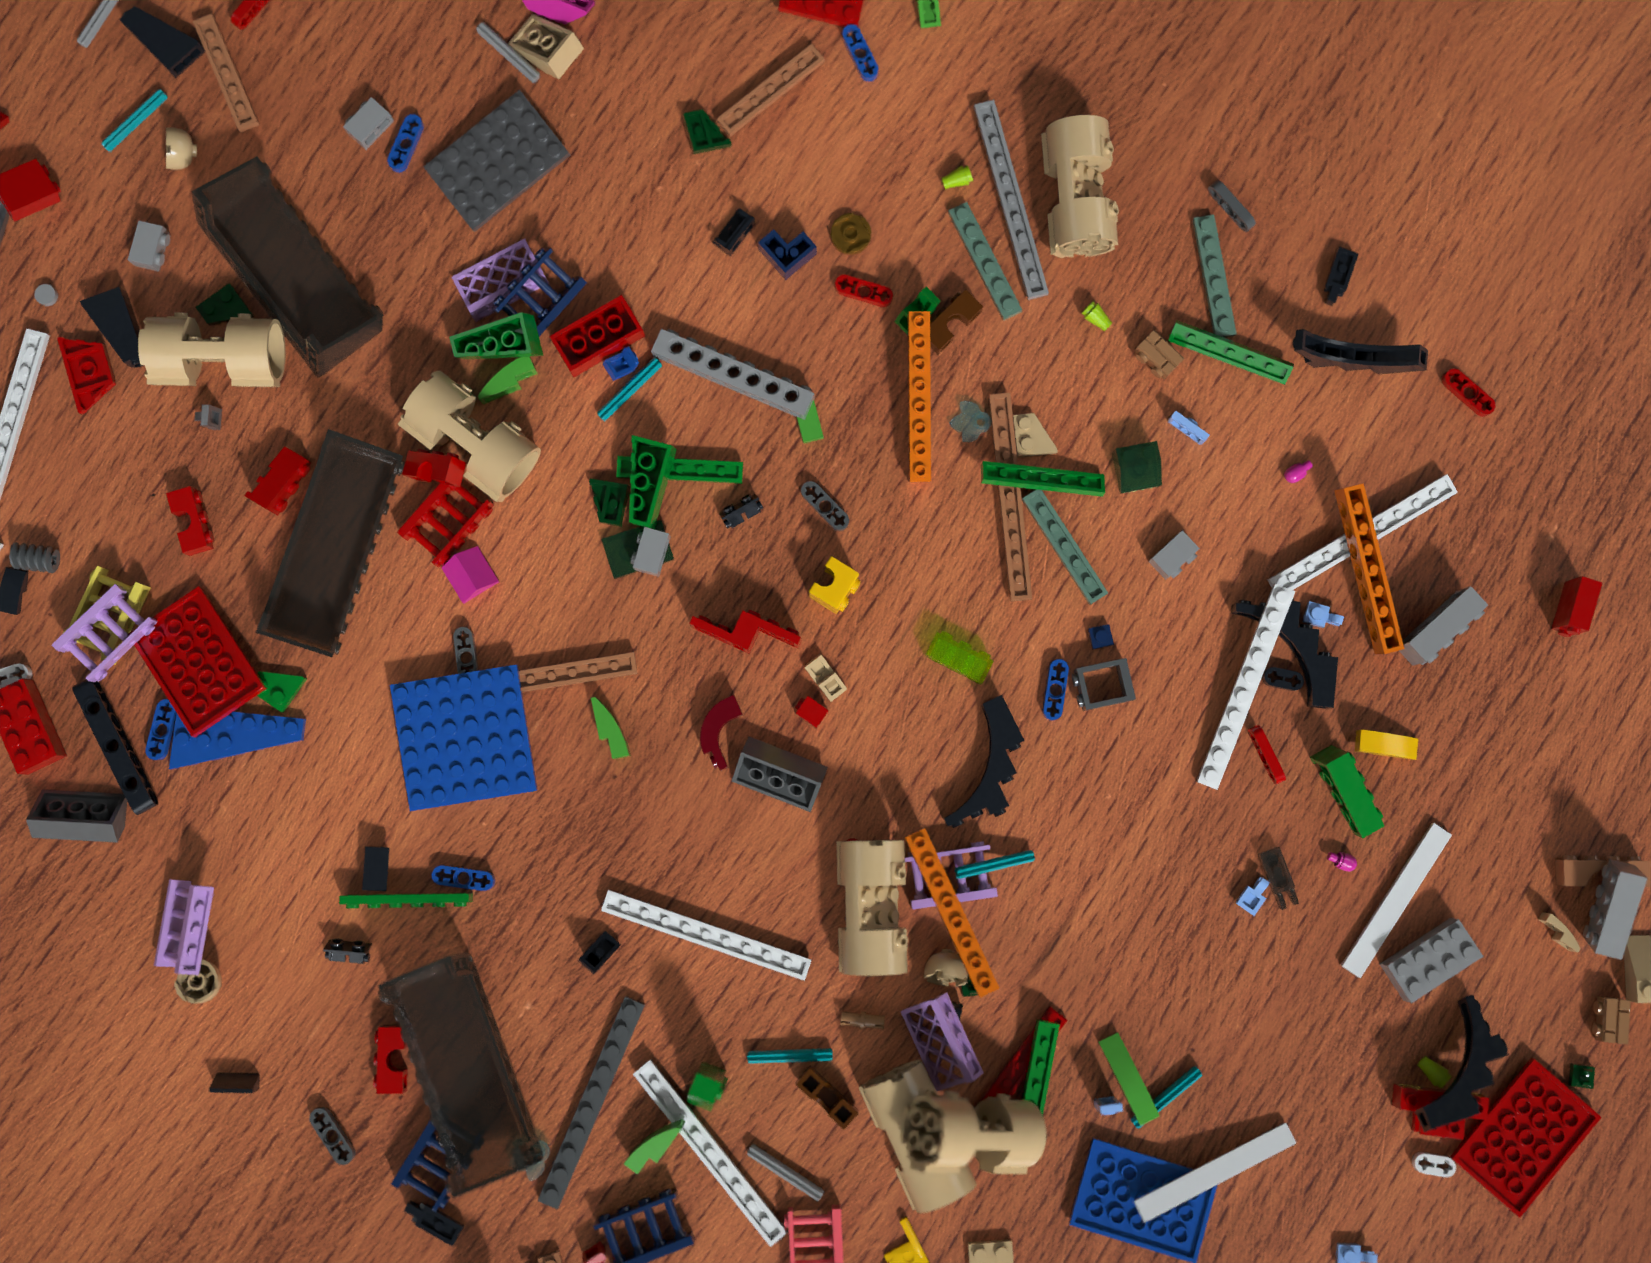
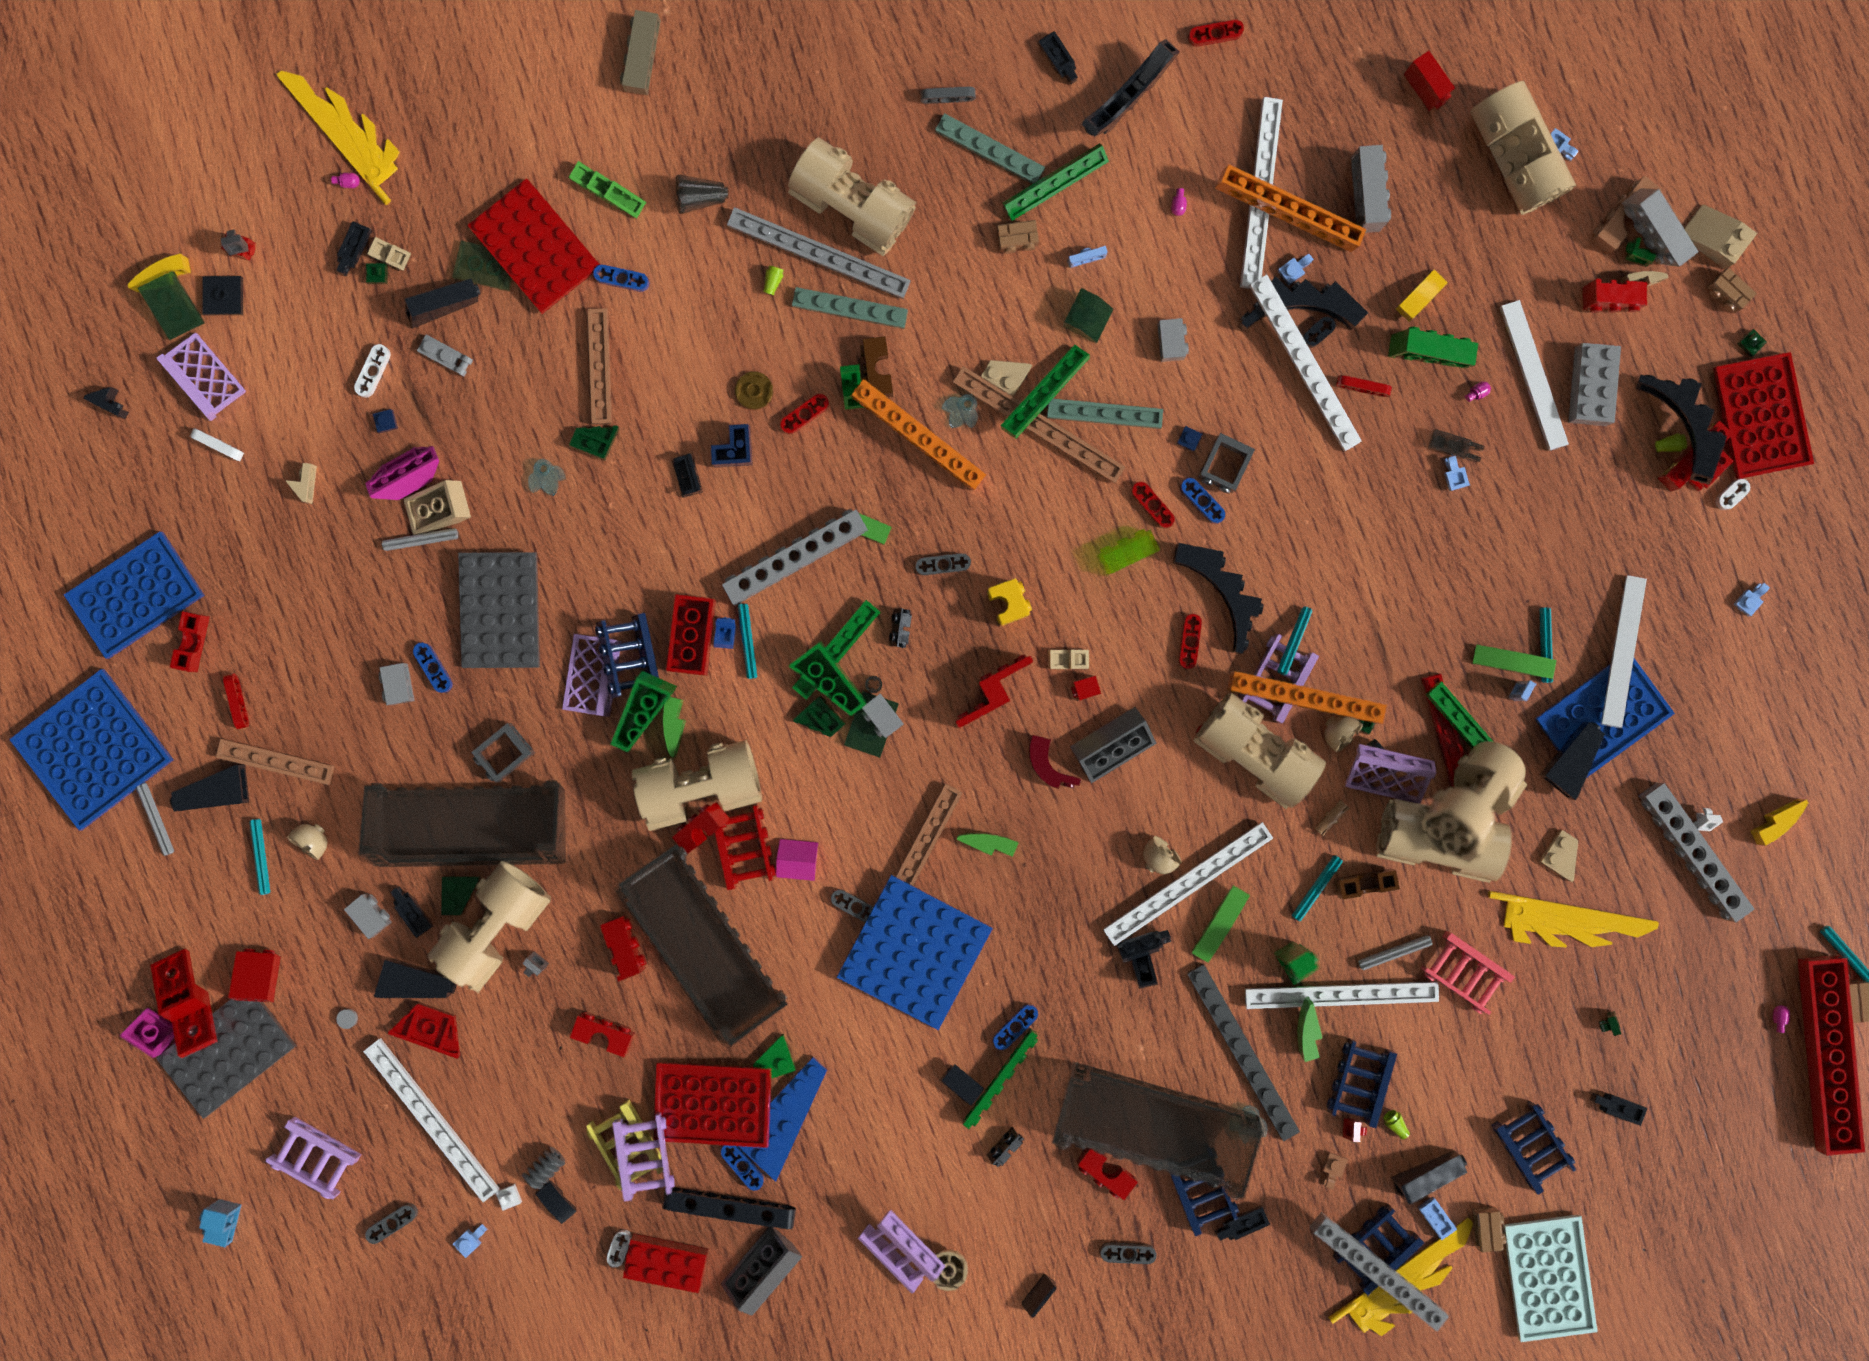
camera: 55 degrees left, 5 degrees up
(178, 280) = (411, 912): none -> black hinge
(395, 259) = (519, 742): none -> dark grey window
(621, 936) = (1143, 945): none -> black hinge
(639, 118) = (546, 480): none -> clear light blue plate
(679, 521) = (872, 690): none -> clear smoke bush
(692, 991) = (1220, 924): none -> bright green slope
(710, 891) = (1160, 857): none -> tan cylinder
(940, 770) = (1197, 638): none -> red beam
(982, 61) = (698, 193): none -> clear smoke cone
(1015, 632) = (1140, 497): none -> red beam
(1081, 1201) = (1573, 761): none -> black slope
(1096, 316) = (954, 258): lime cone -> none
(1523, 917) = (1614, 296): none -> red wedge
(1576, 913) = (1639, 256): none -> green bracket
(1586, 732) = (1523, 147): none -> tan cylinder
(1615, 762) = (1561, 142): none -> light blue plate

